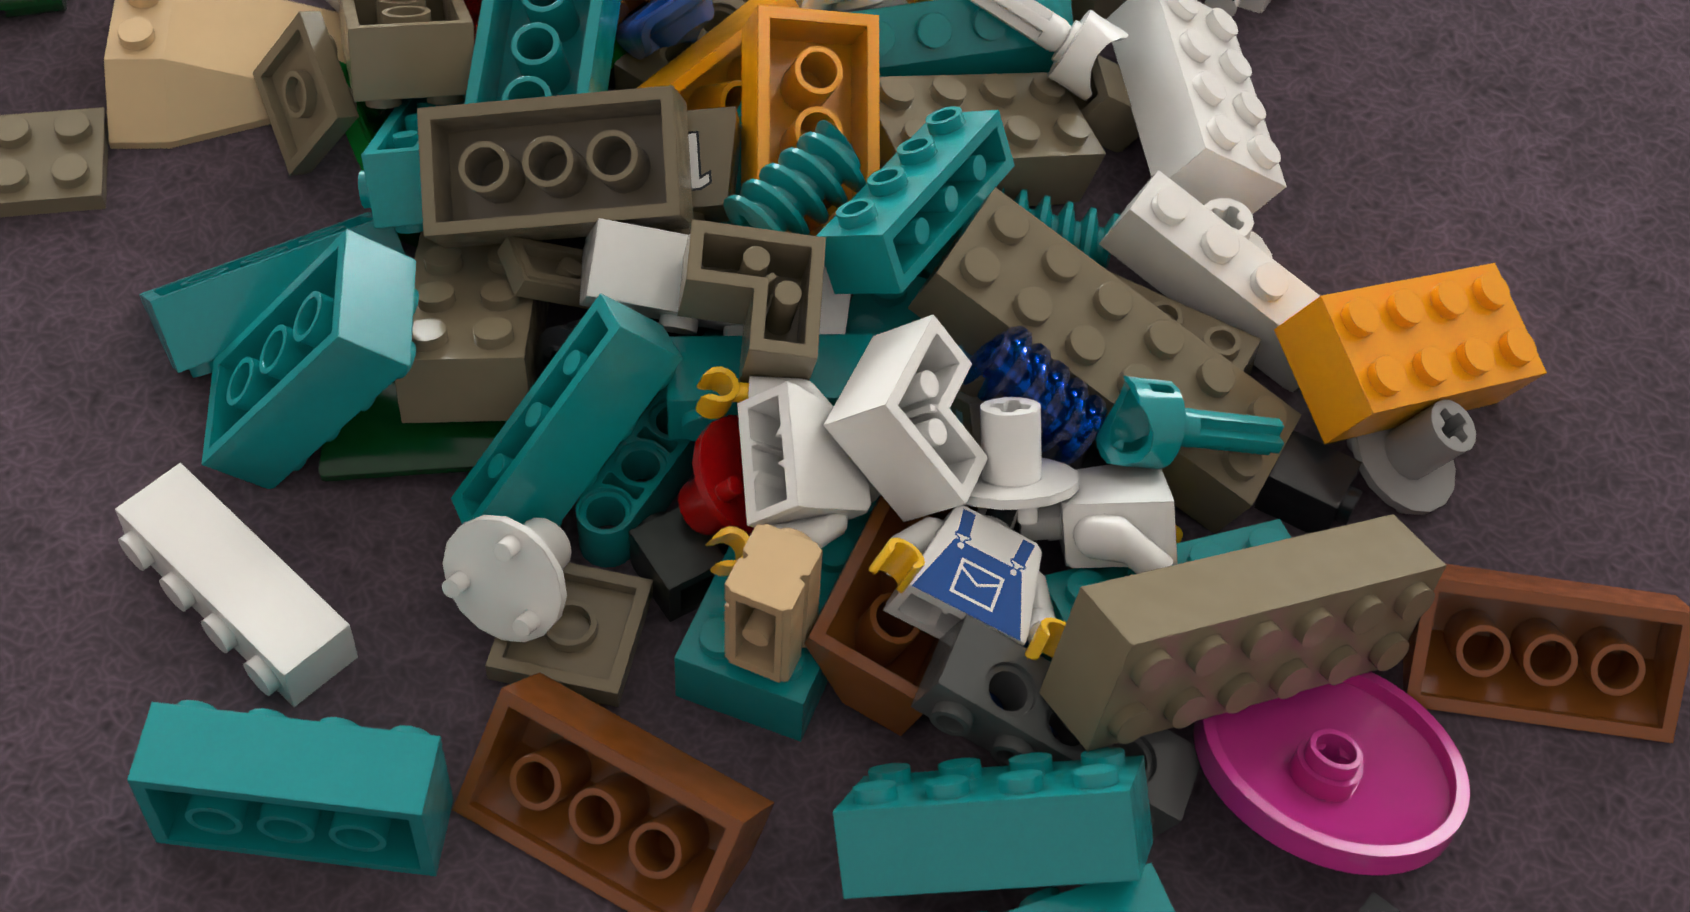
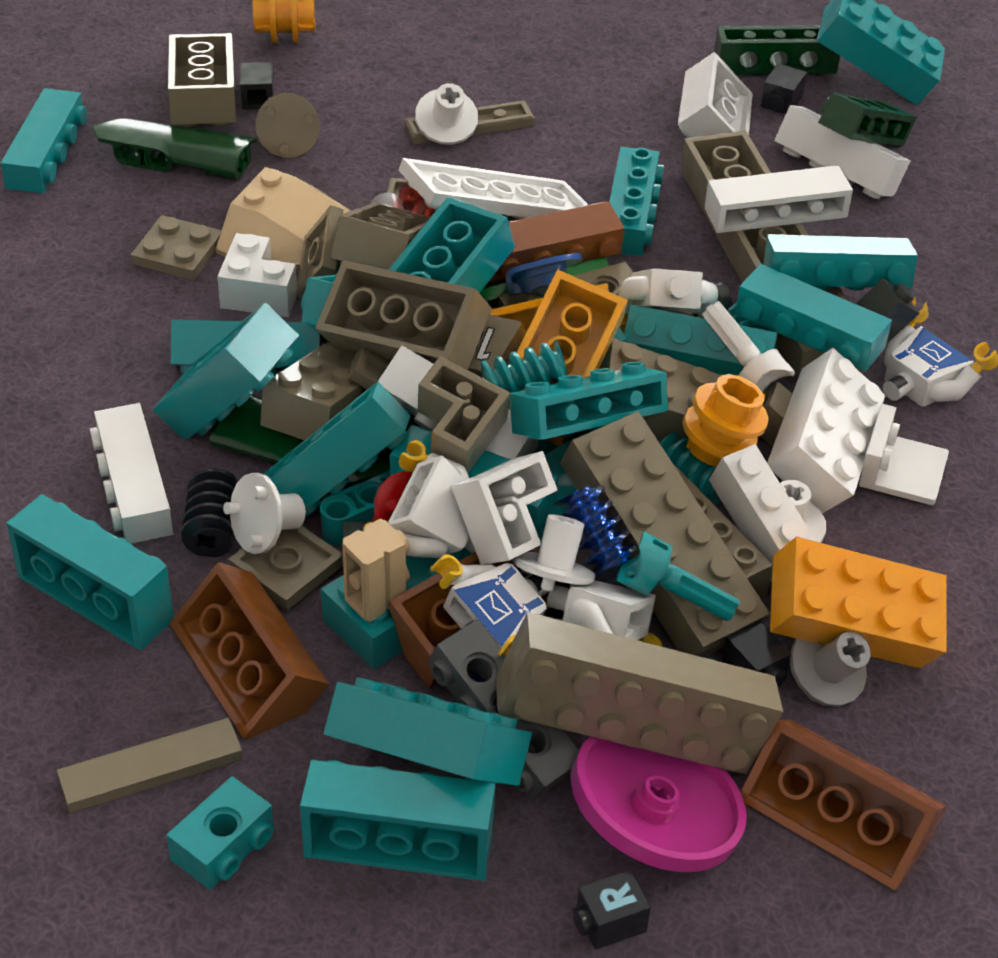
camera: 30 degrees right, 10 degrees down
(217, 180) = (252, 278): none -> white brick
(406, 600) = (205, 525): none -> black piece
(1089, 148) = (724, 418): none -> light orange piece
(1307, 110) = (900, 464): none -> white bracket

